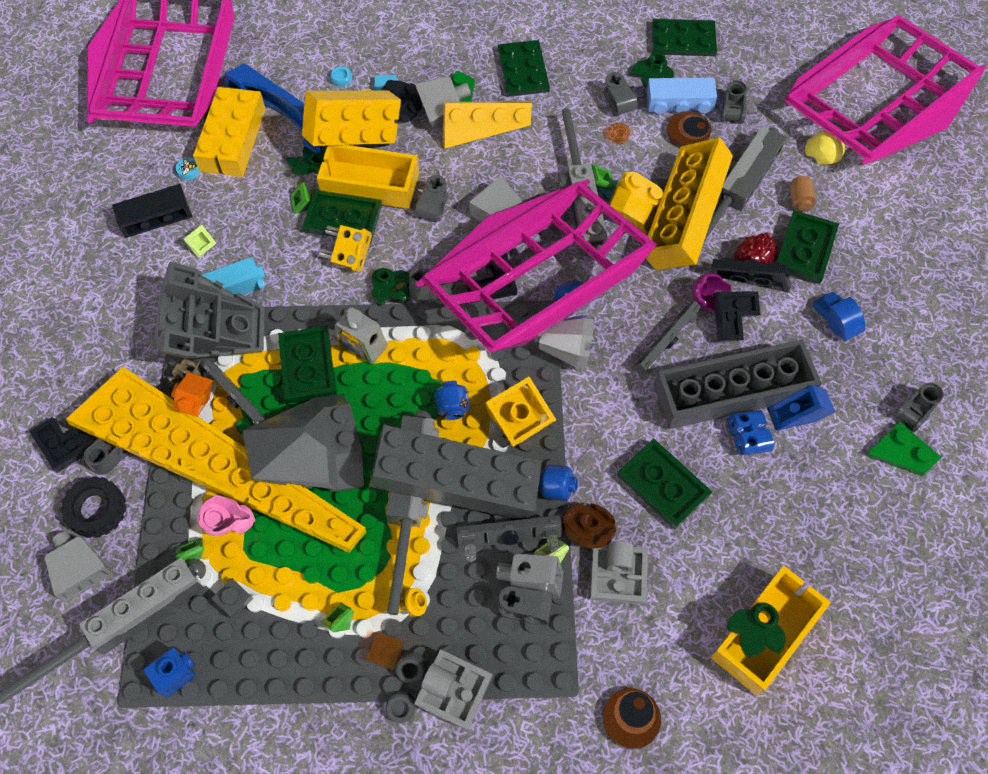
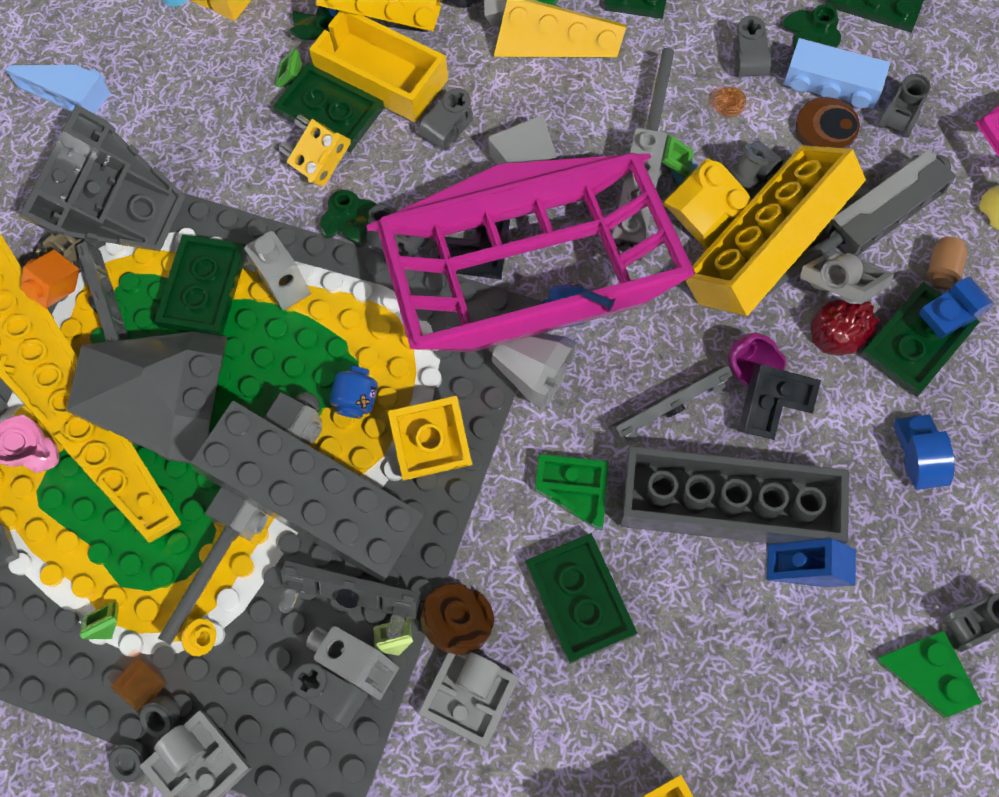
camera: 25 degrees right, 5 degrees up
(133, 258) = (62, 84): none -> light blue slope
(152, 210) = (108, 32): black brick -> none
(199, 241) = (147, 87): yellowish green slope -> none
(239, 276) = (168, 148): medium azure brick -> none
(557, 482) = (437, 548): blue head -> none
(563, 180) = (625, 144): dark grey tile -> none
(609, 279) = (599, 299): none -> dark blue piece
(628, 413) = (574, 485): none -> green wing
(656, 167) = (756, 165): none -> dark grey piece
(746, 219) = (846, 276): none -> light grey plate
(750, 432) = (726, 571): blue piece -> none
(760, 273) = (836, 358): black wing -> none
(823, 218) = (956, 307): none -> blue brick

